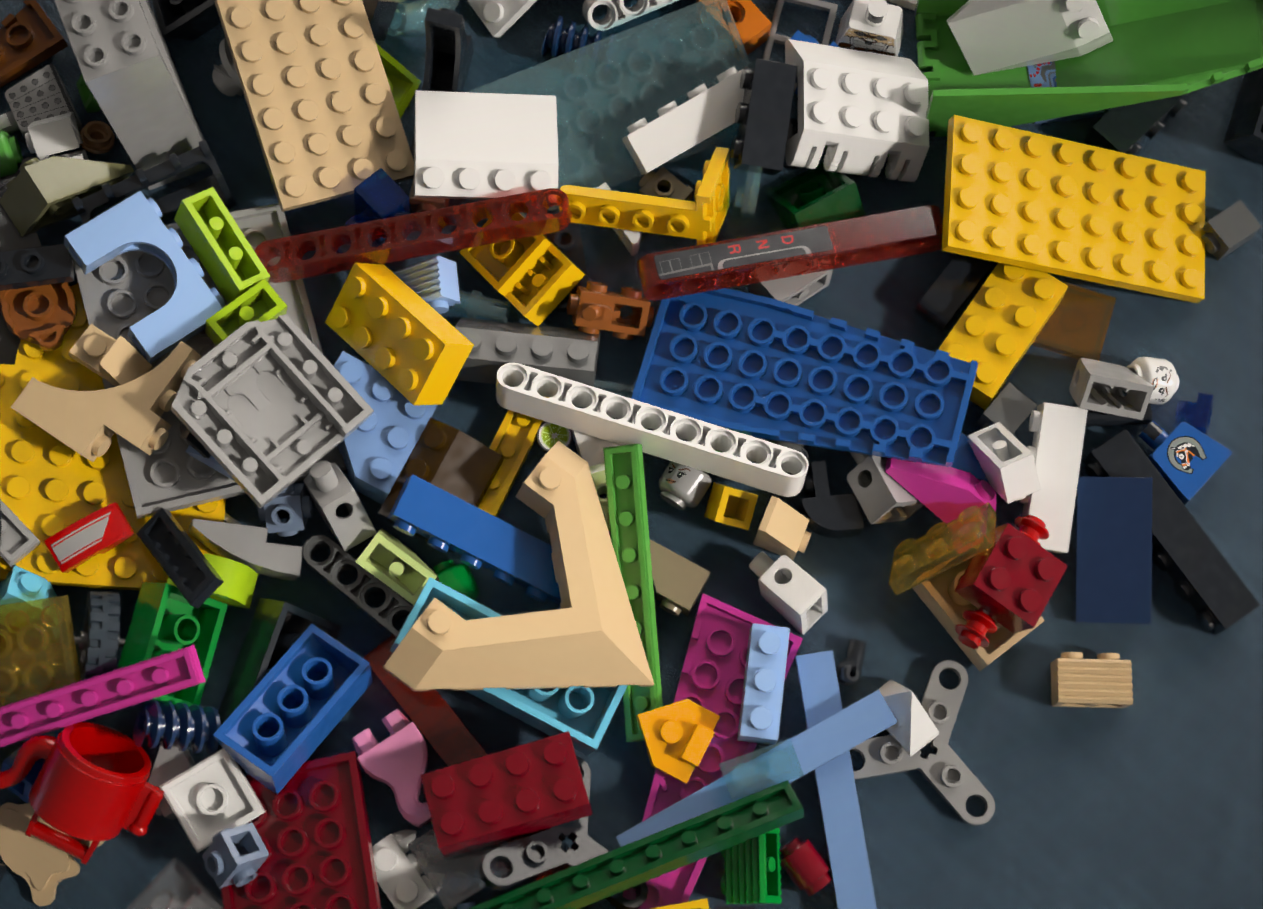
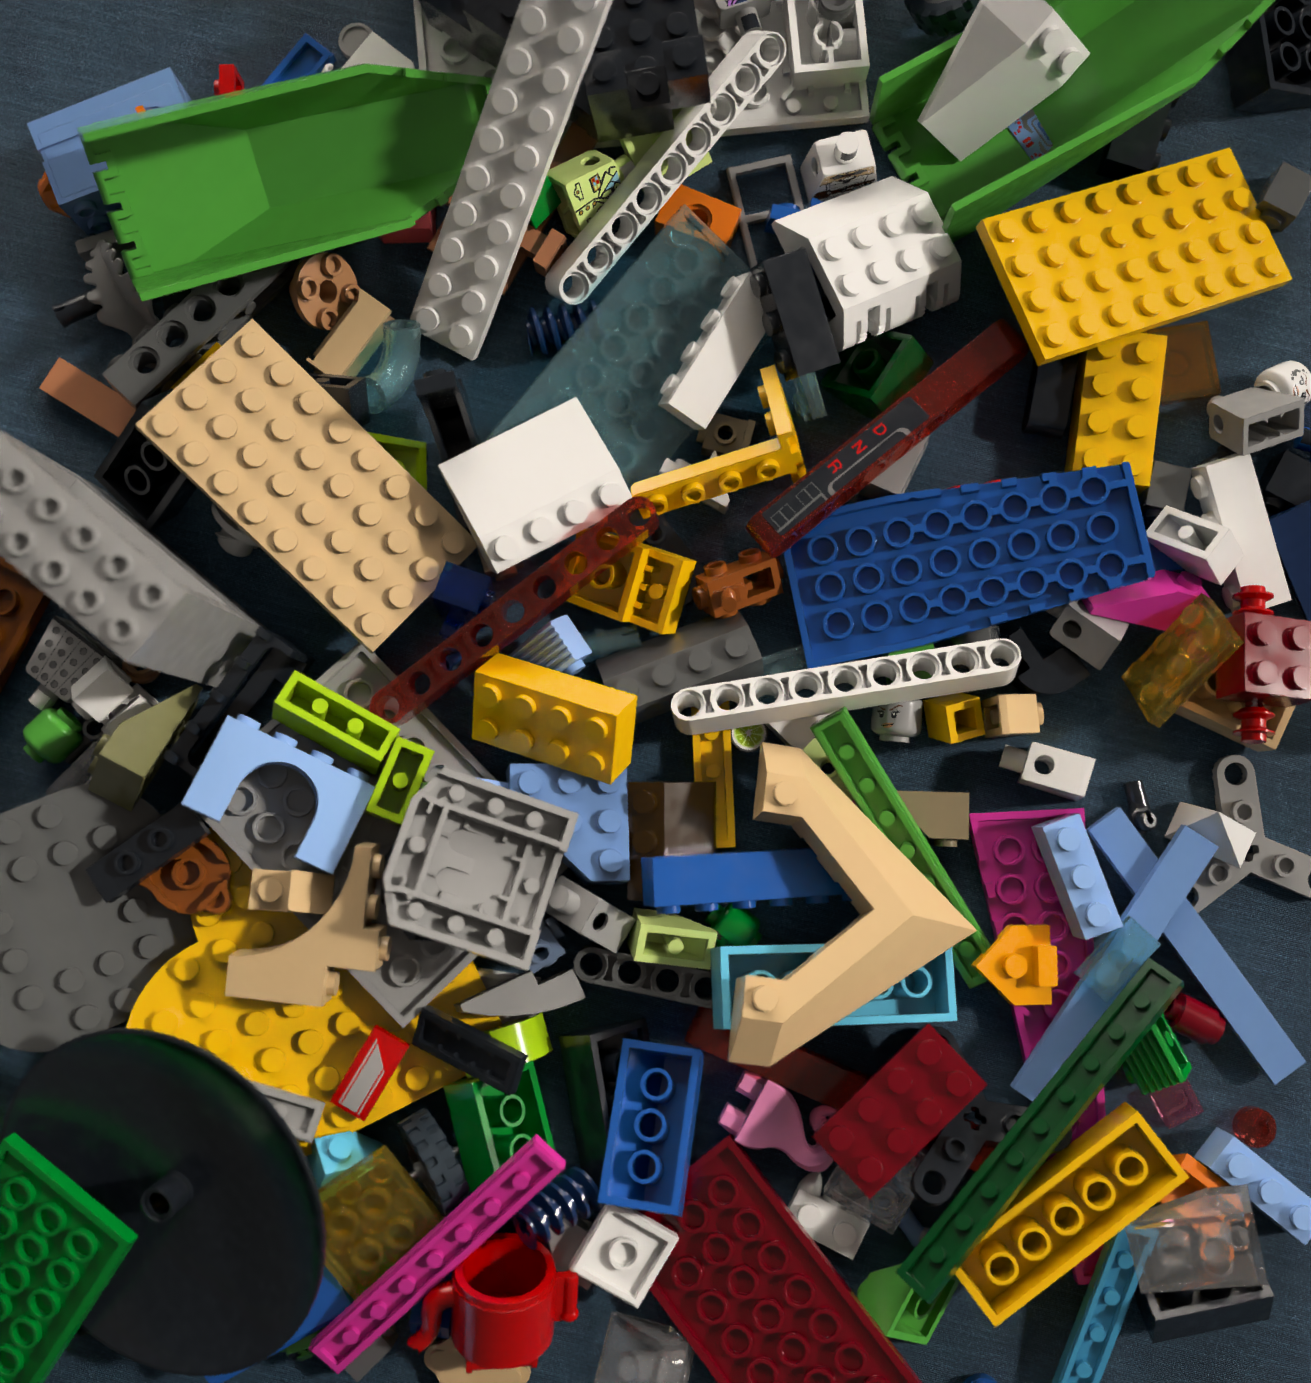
camera: 20 degrees left, 10 degrees up
(235, 855) = (678, 1298): sand blue brick -> none

